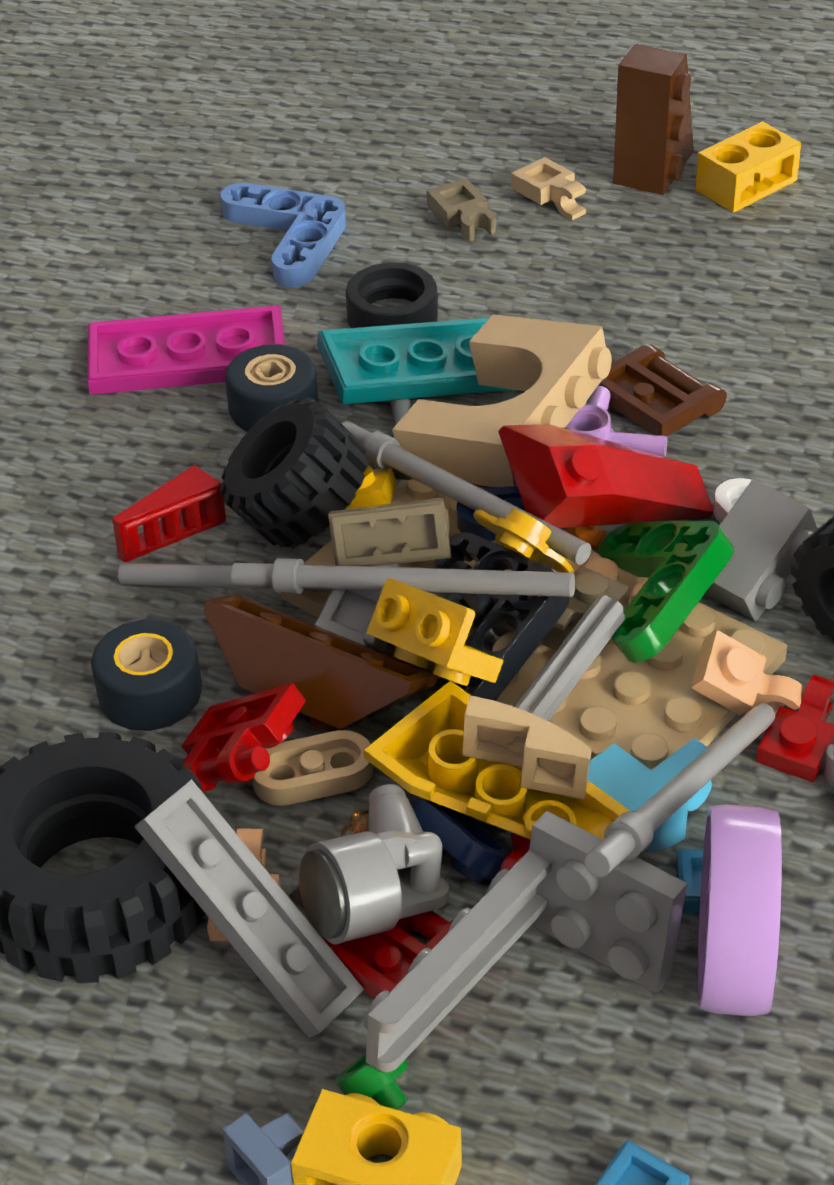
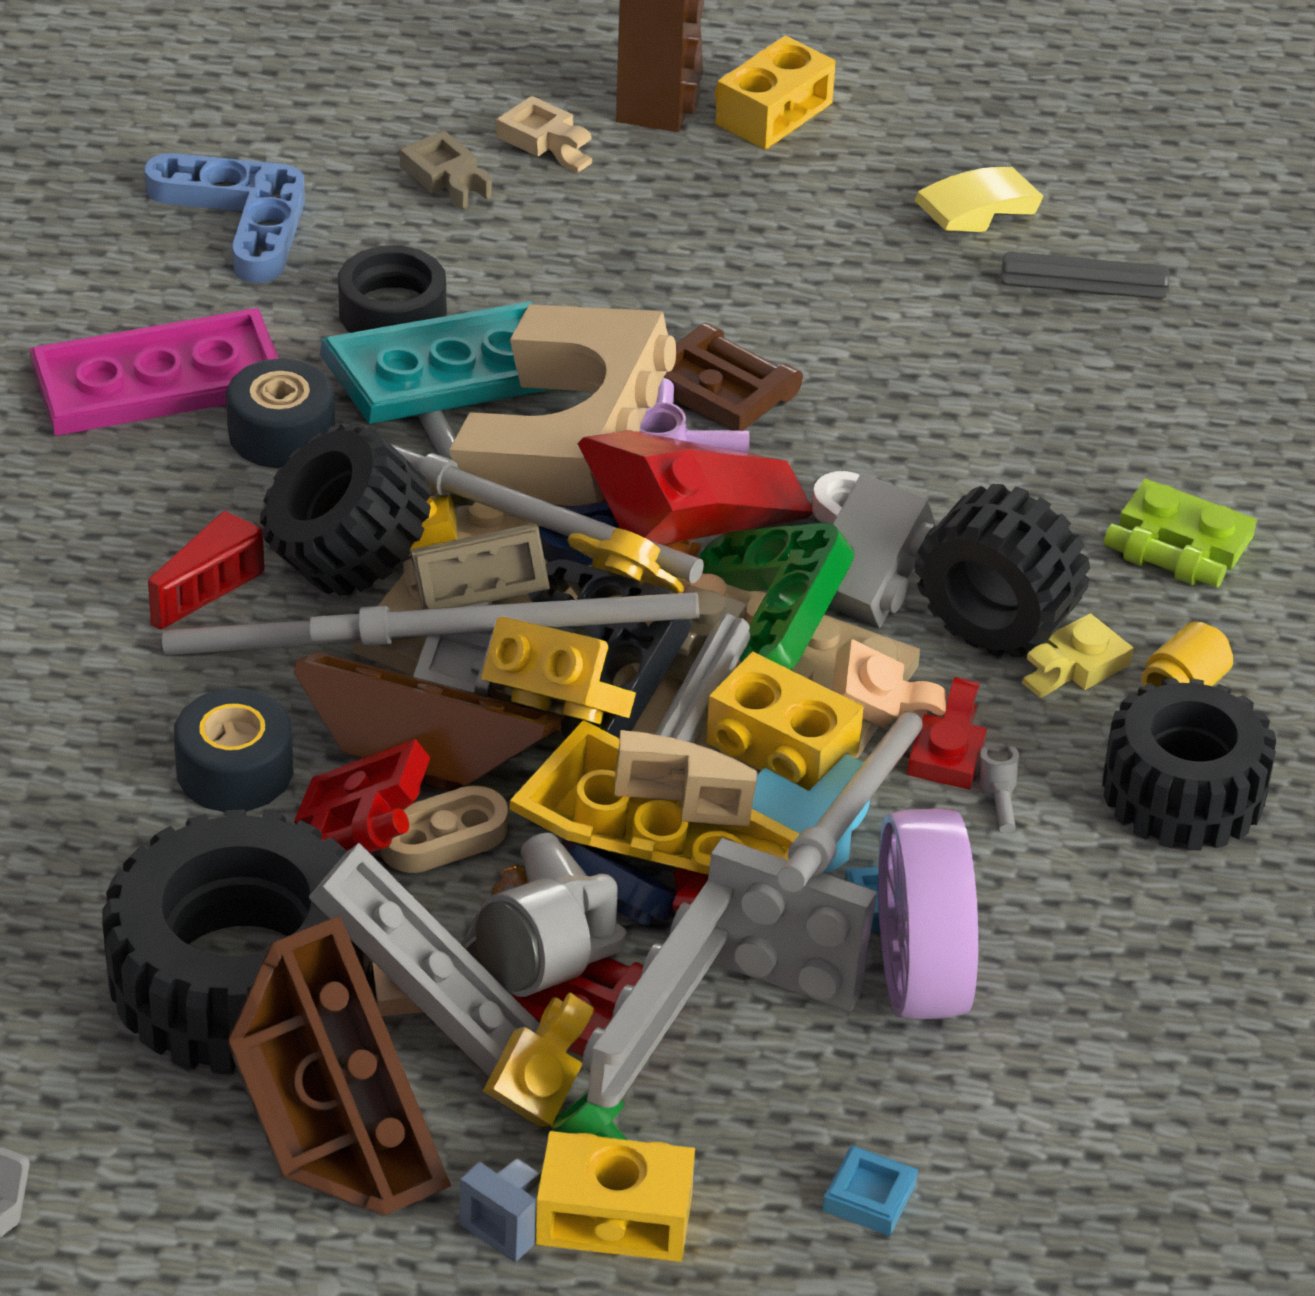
camera: 15 degrees left, 0 degrees up
(124, 1007) = (331, 1077): none -> reddish brown wedge
(331, 1018) = (535, 1068): none -> yellow plate
(638, 701) = (782, 721): none -> yellow brick

